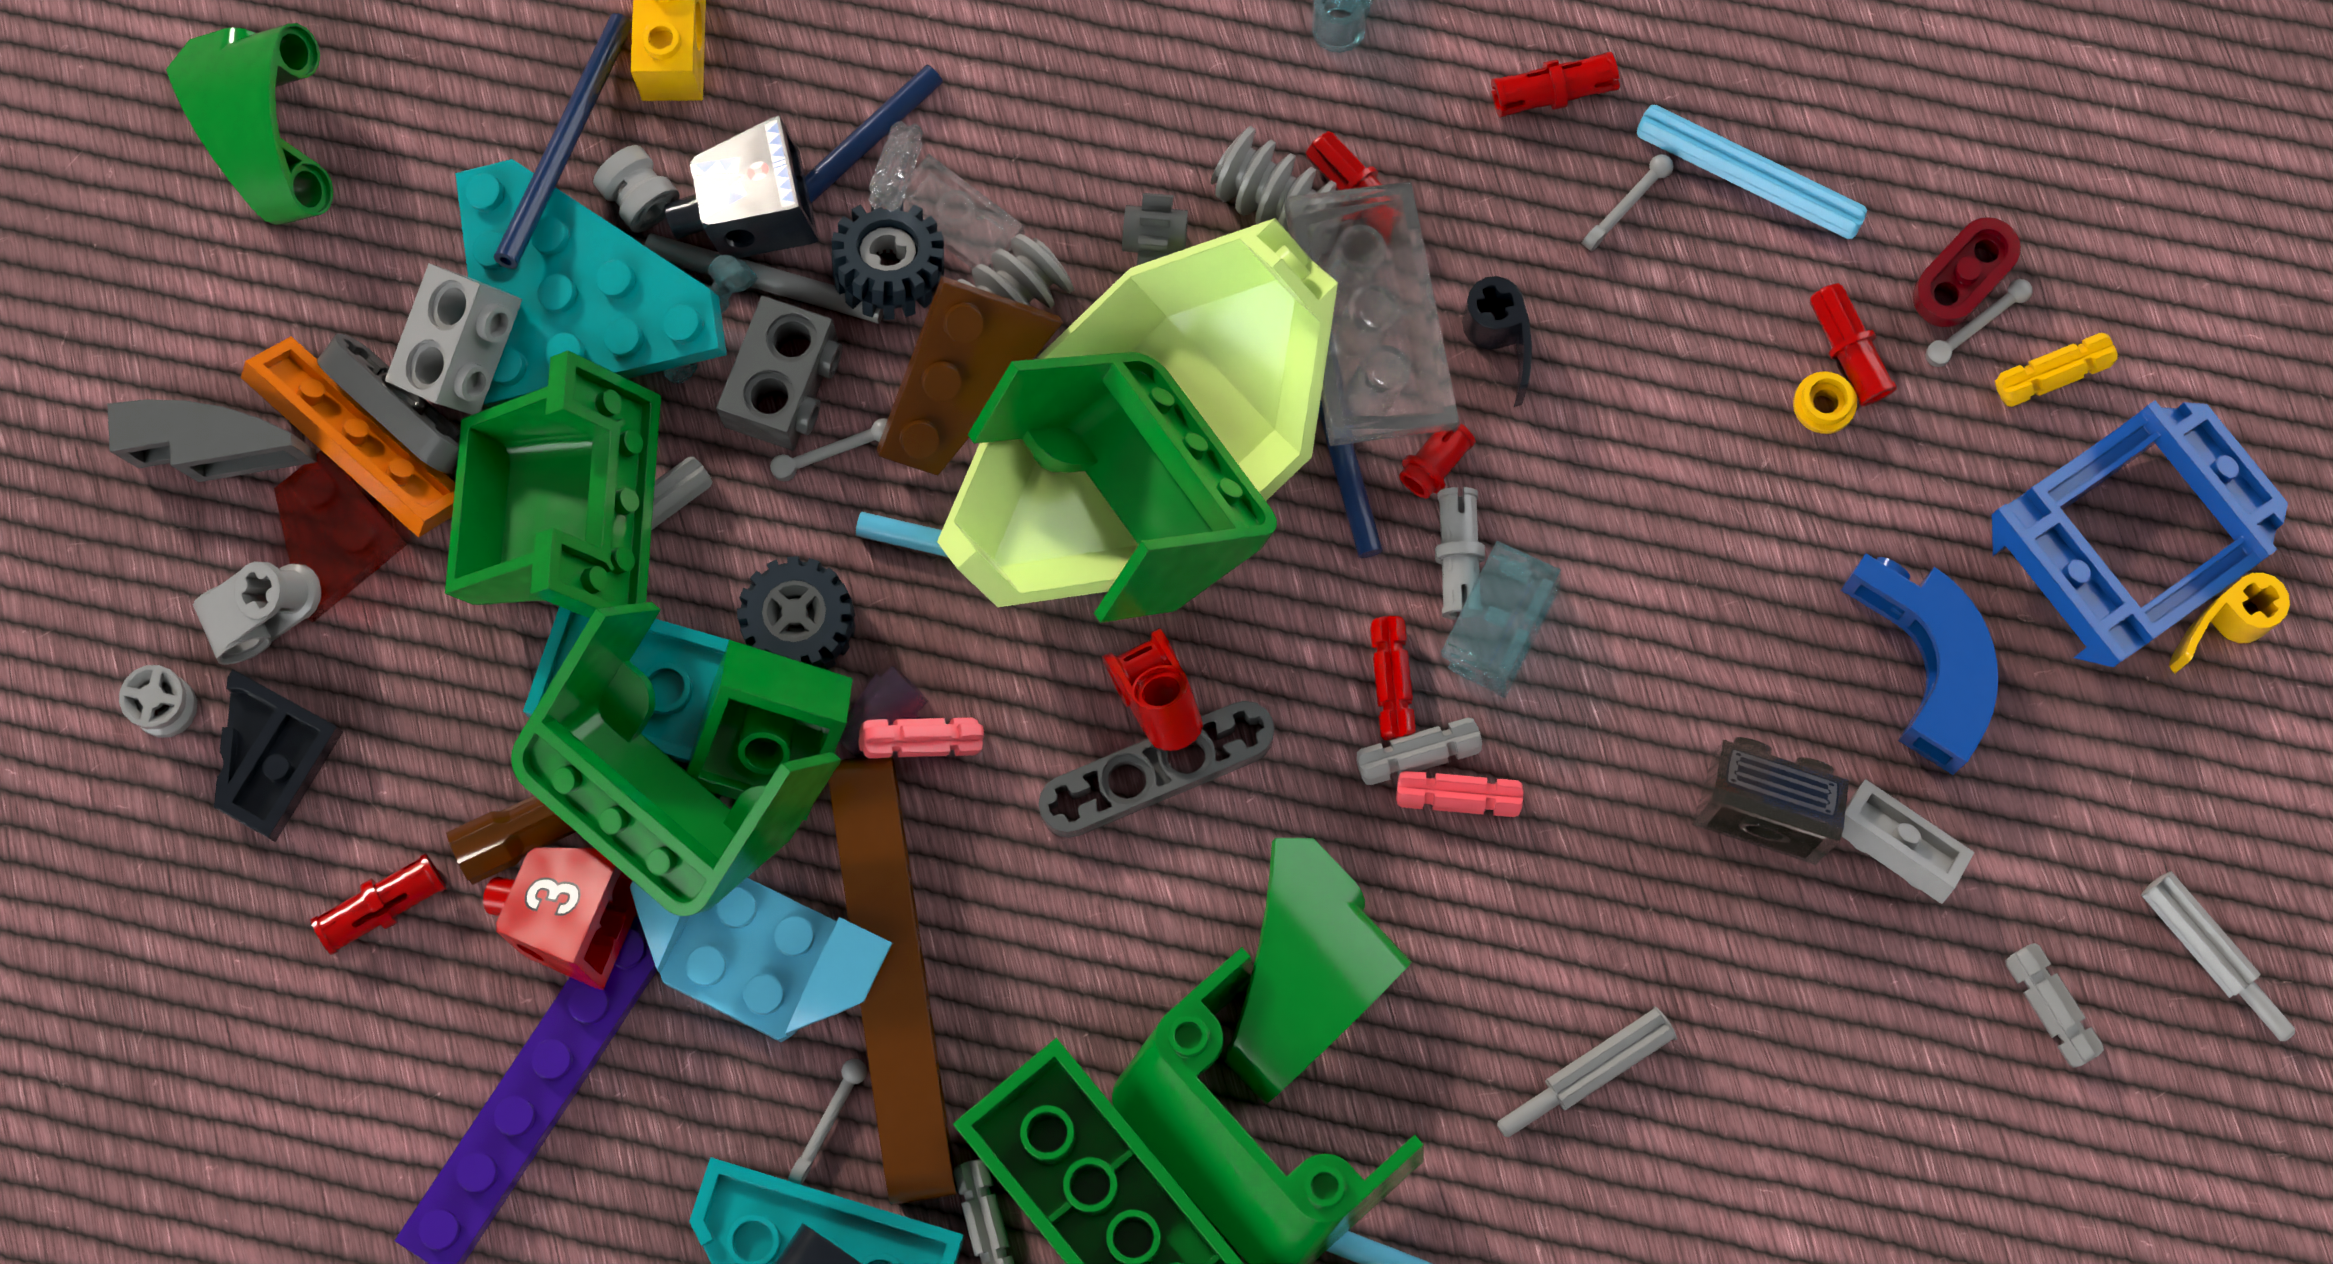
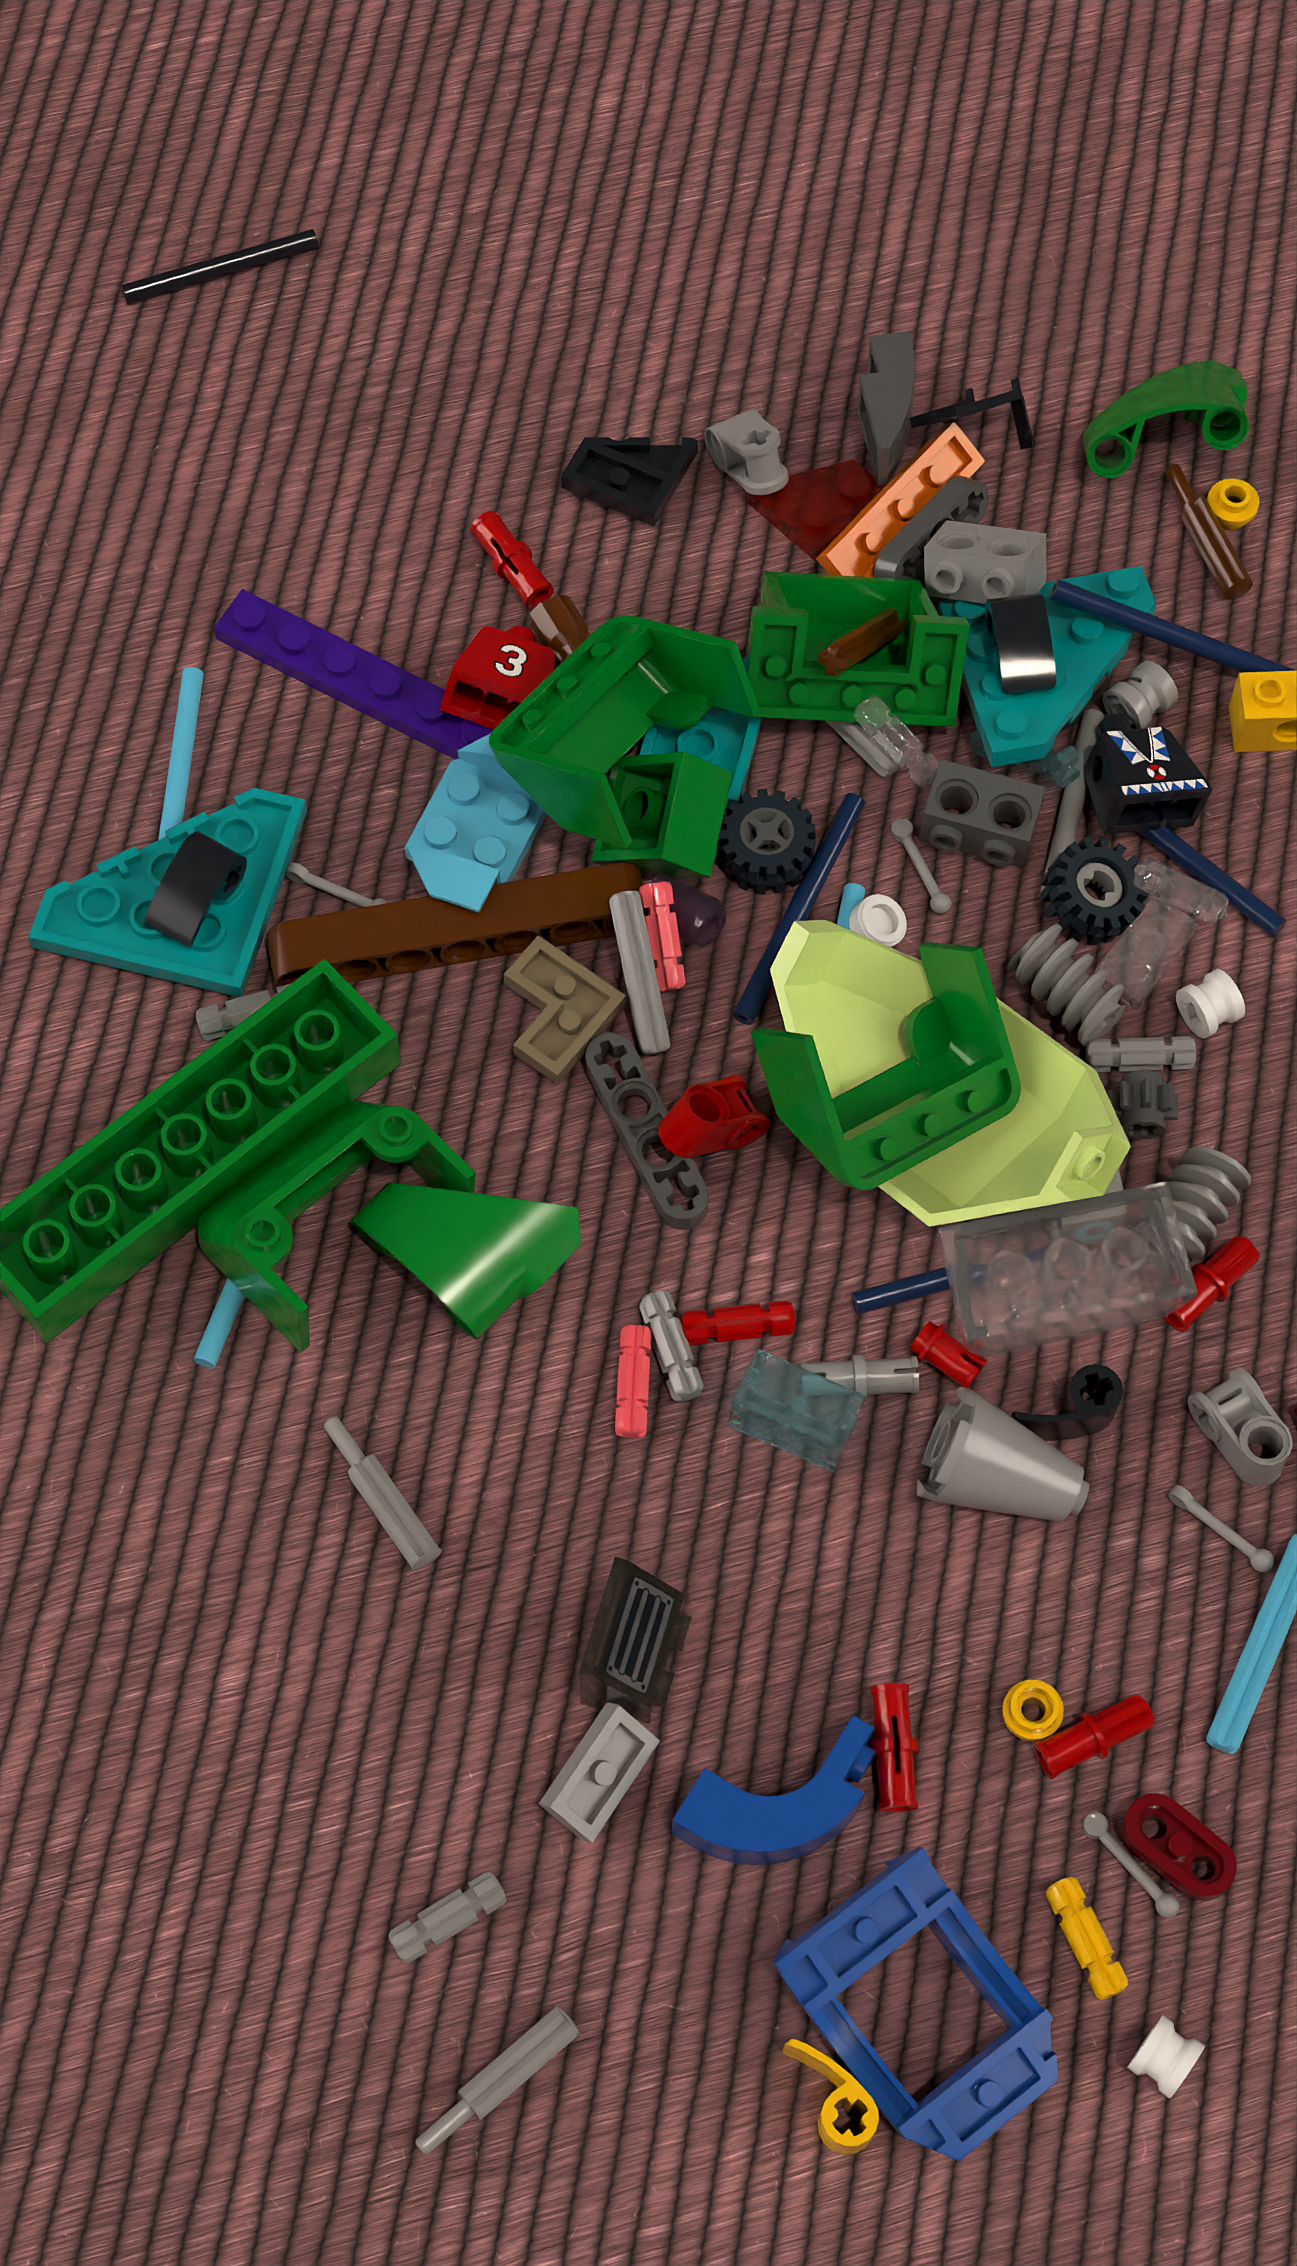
camera: 85 degrees right, 10 degrees down
(145, 692) = (661, 388): light grey wheel -> none
(228, 344) = (955, 411): none -> black piece
(381, 79) = (1232, 514): none -> yellow plate
(419, 95) = (1210, 538): none -> reddish brown axle
(560, 483) = (861, 642): none -> reddish brown axle
(566, 298) = (1023, 642): none -> black panel
(682, 457) = (897, 740): none -> clear axle
(881, 587) = (800, 904): none -> dark blue piece
(910, 499) = (879, 919): none -> white tile
(956, 368) = (1016, 939): reddish brown wing -> none
(969, 764) = (639, 972): none -> light grey axle
(998, 842) = (573, 1008): none -> dark tan plate
(1031, 150) = (1210, 1003): none -> white wheel
(1084, 231) = (1141, 1054): none -> light grey axle
(1515, 173) = (1239, 1416): none -> light grey piece
(1570, 418) = (998, 1464): none -> light grey cone
(1869, 536) = (892, 1706): none -> red pin
(2176, 302) = (1166, 2056): none -> white wheel

